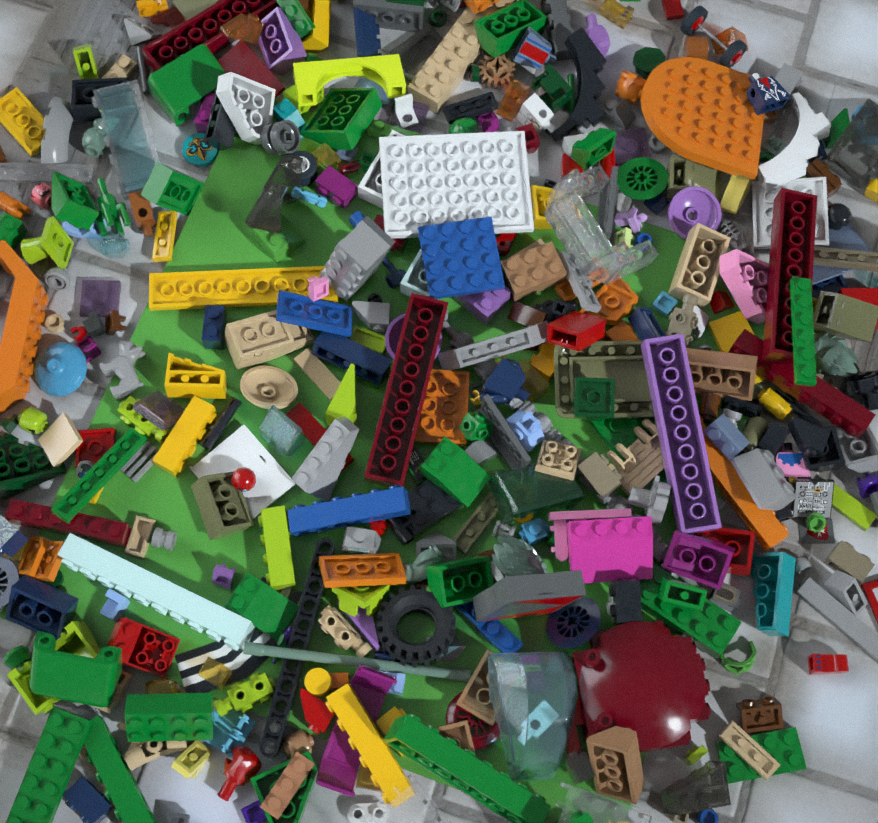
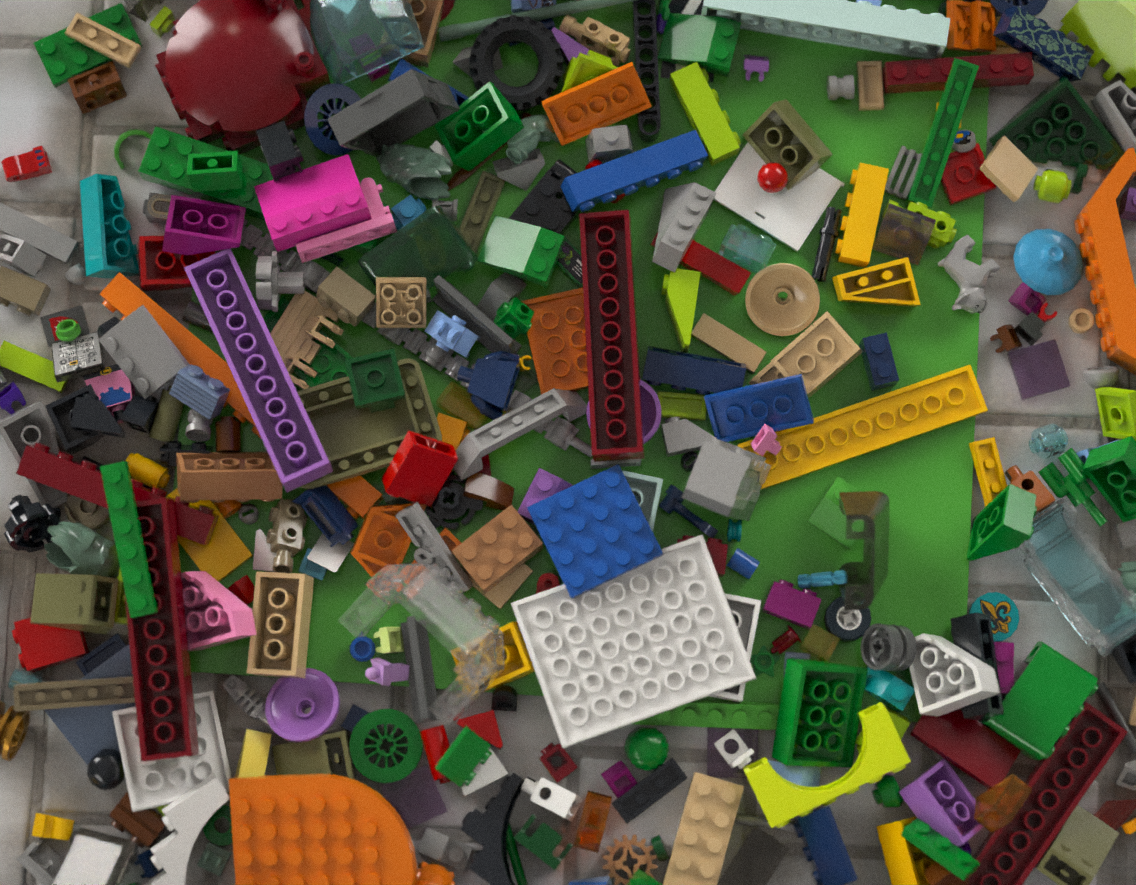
camera: 165 degrees right, 10 degrees up
(656, 303) = (329, 557): none -> white sticker

